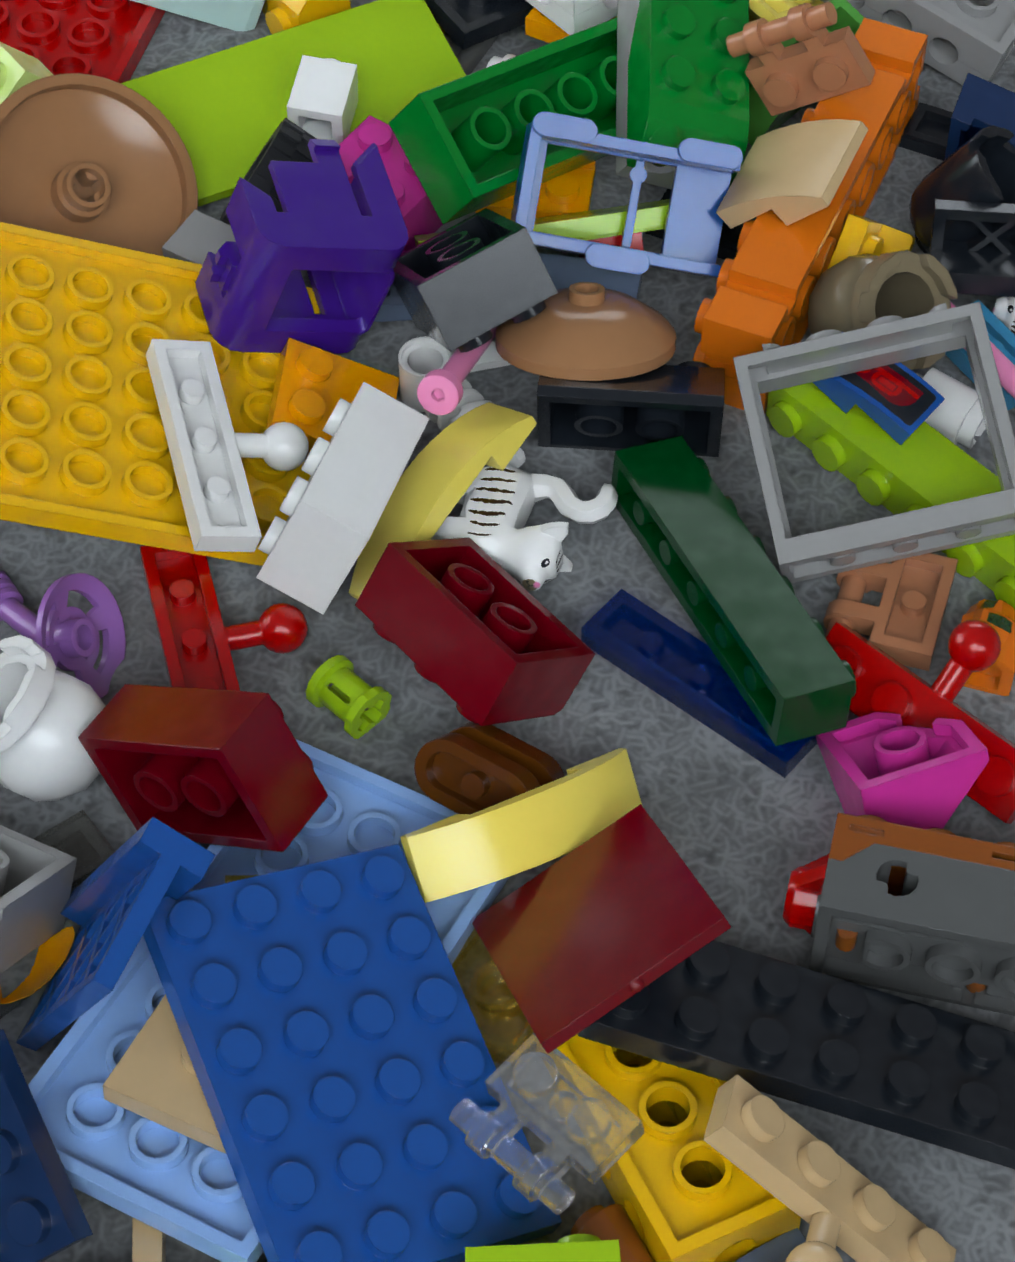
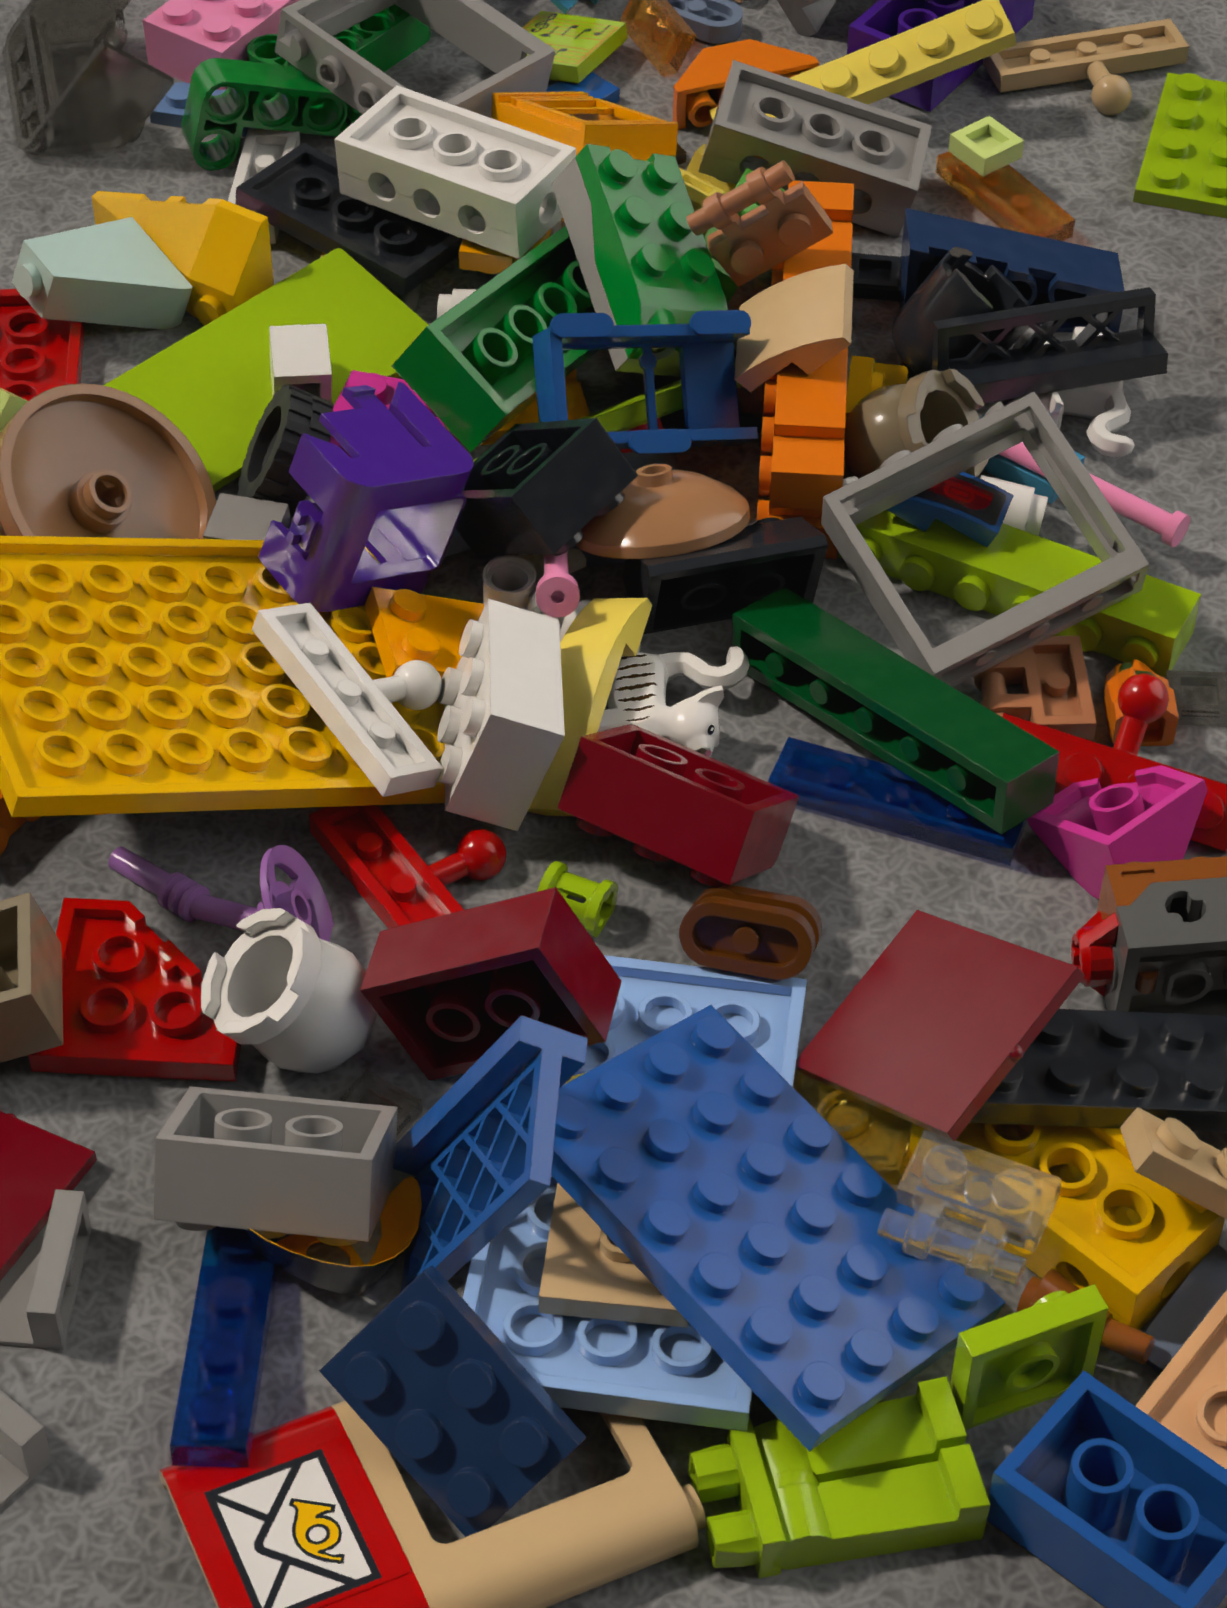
camera: 20 degrees left, 5 degrees down
(523, 830) = (811, 968): light yellow slope -> none

